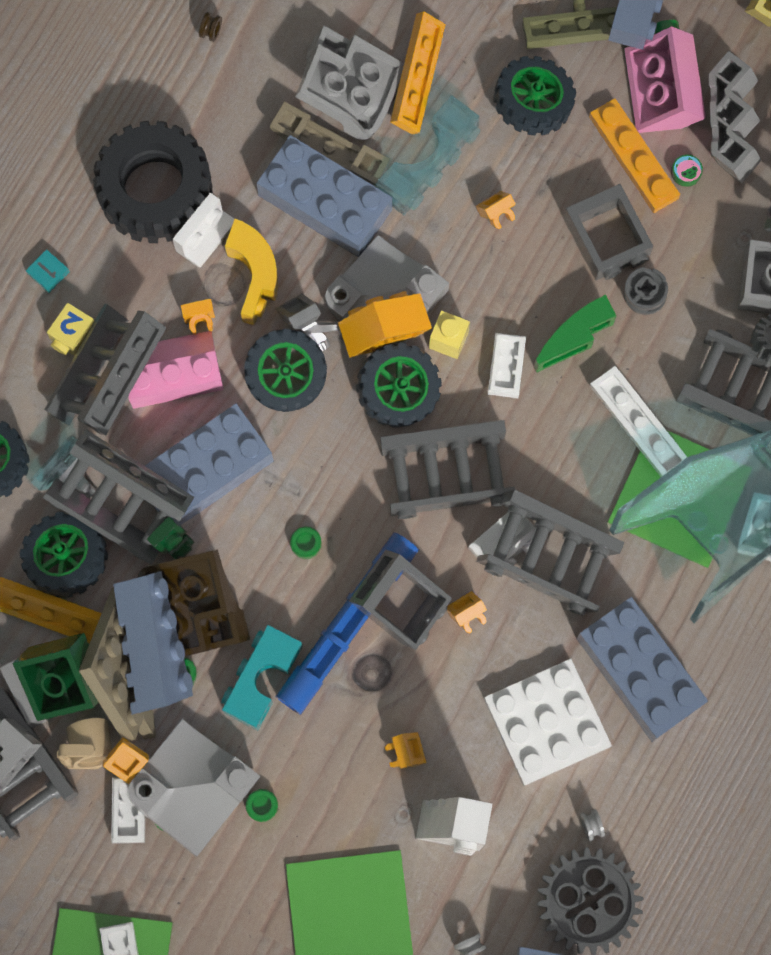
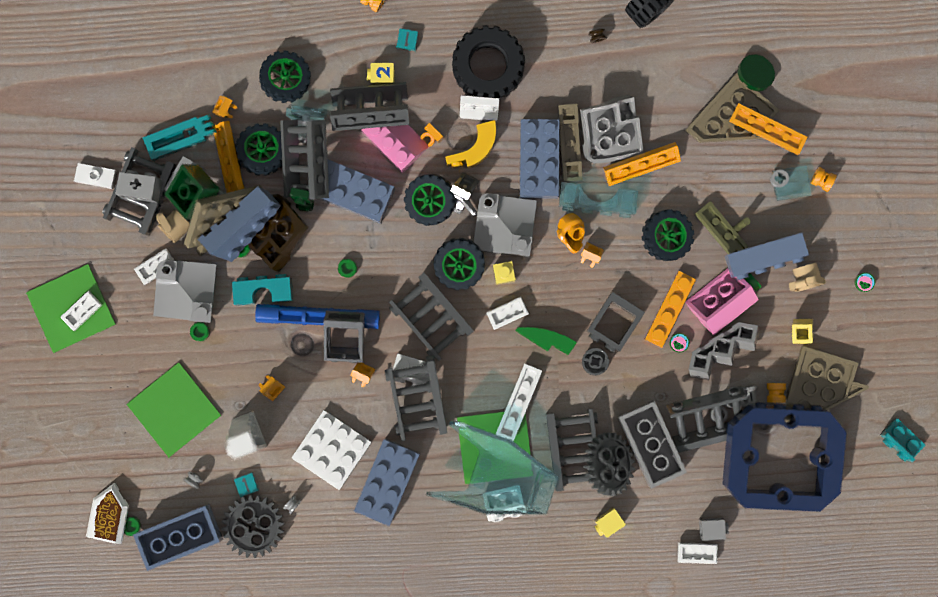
camera: 65 degrees right, 10 degrees up
(125, 760) = (175, 250): light orange tile -> none
(384, 323) = (483, 236): light orange brick -> none
(449, 213) = (571, 231): none -> light orange head
(523, 875) = (246, 484): none -> teal tile

